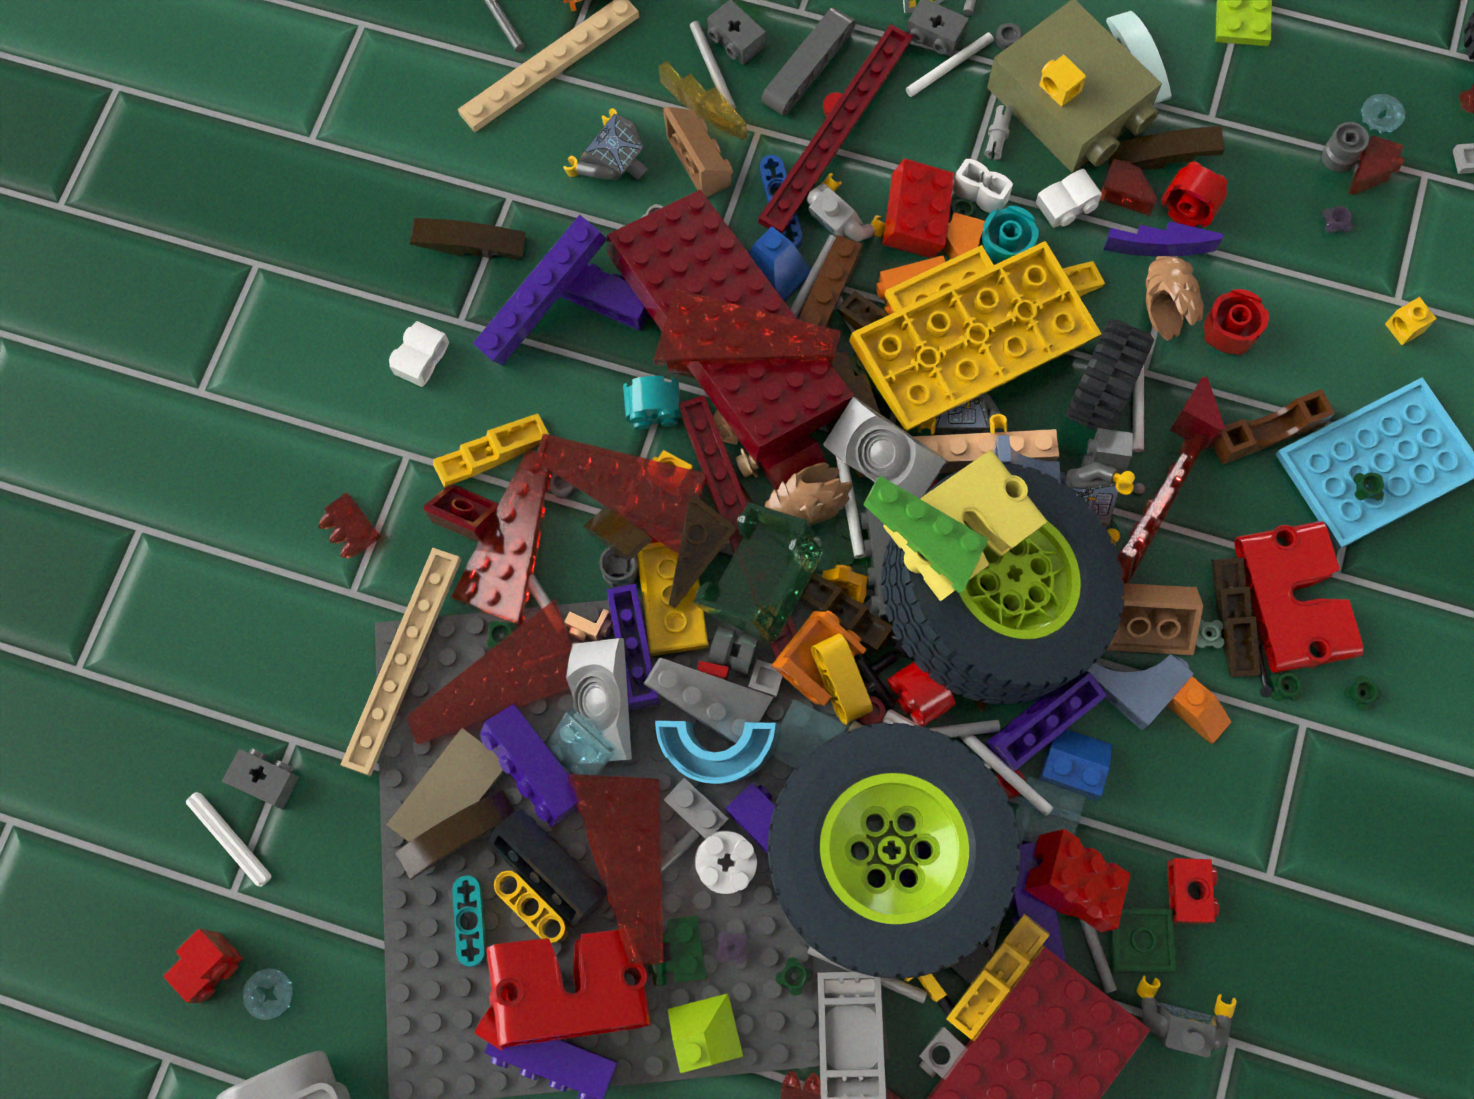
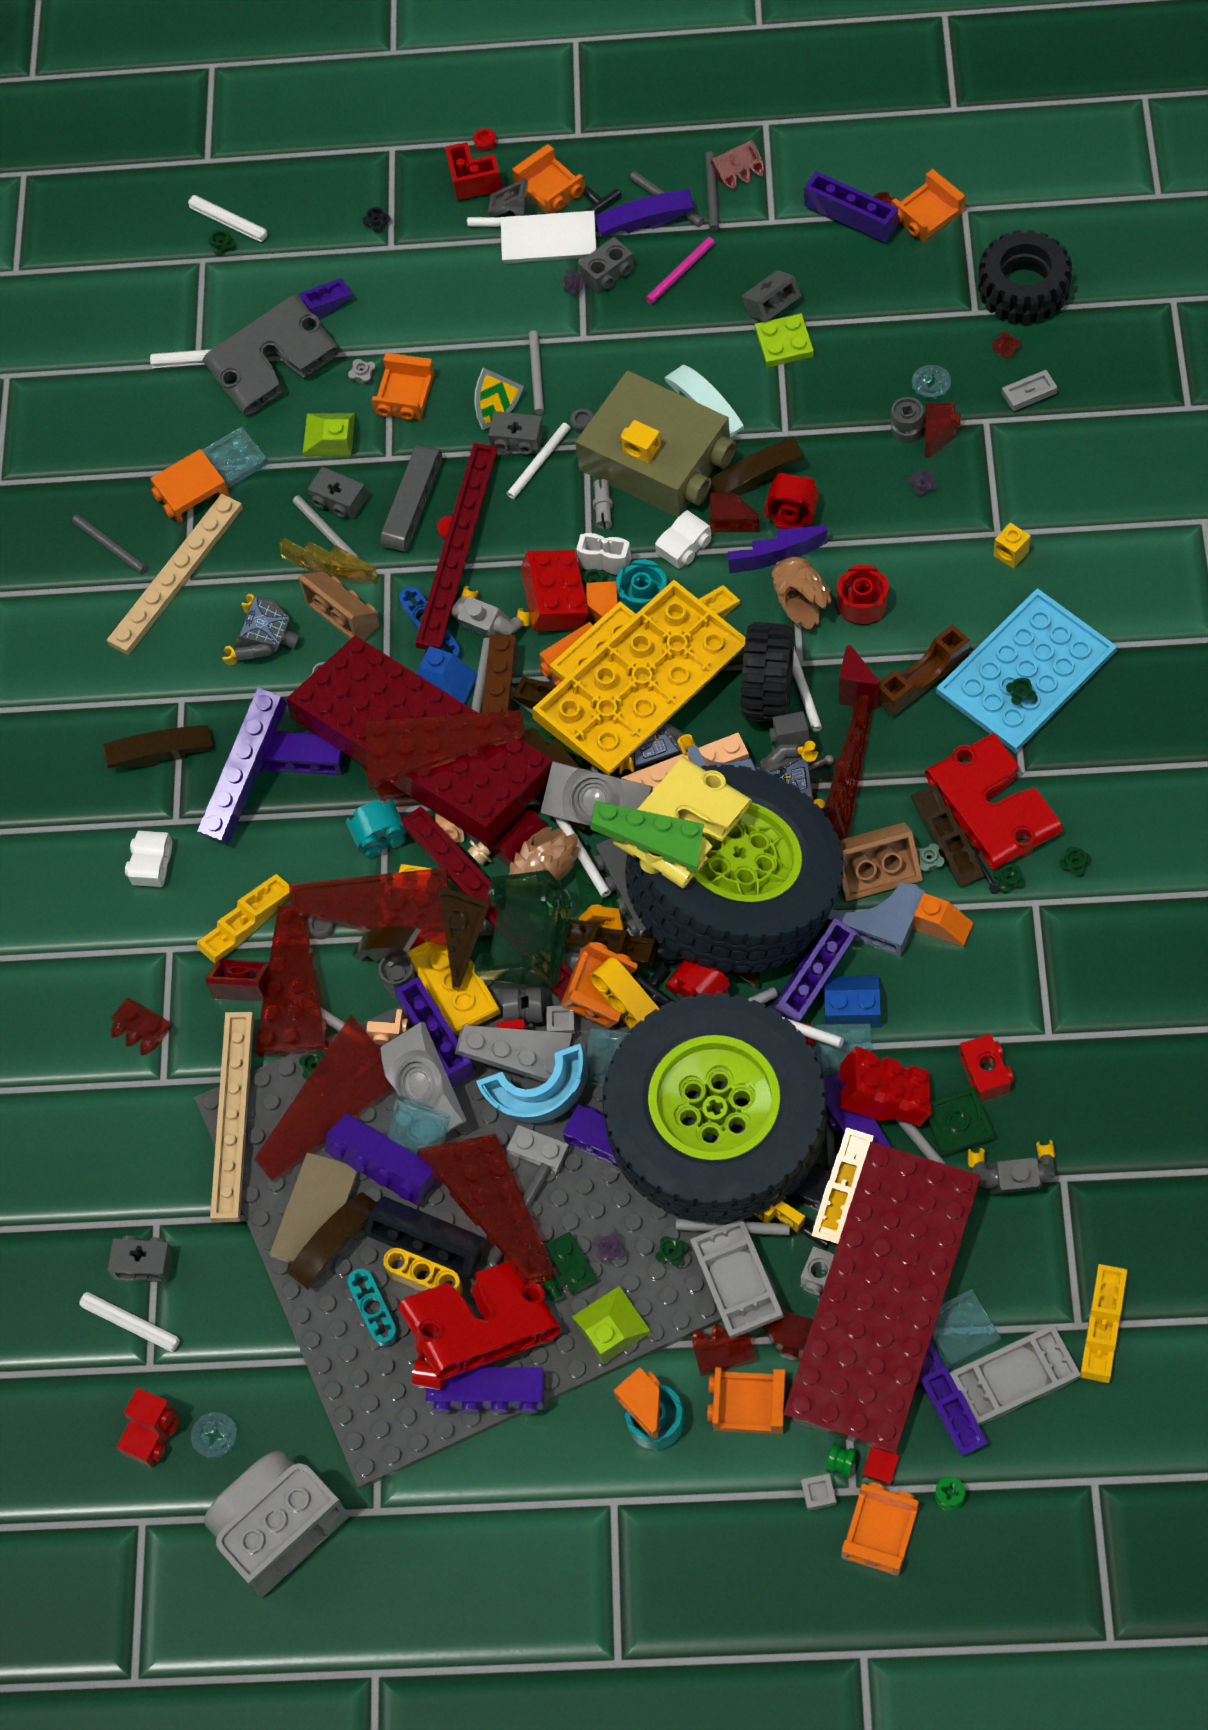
camera: 15 degrees left, 10 degrees down
(740, 852) = (569, 1192): white plate -> none

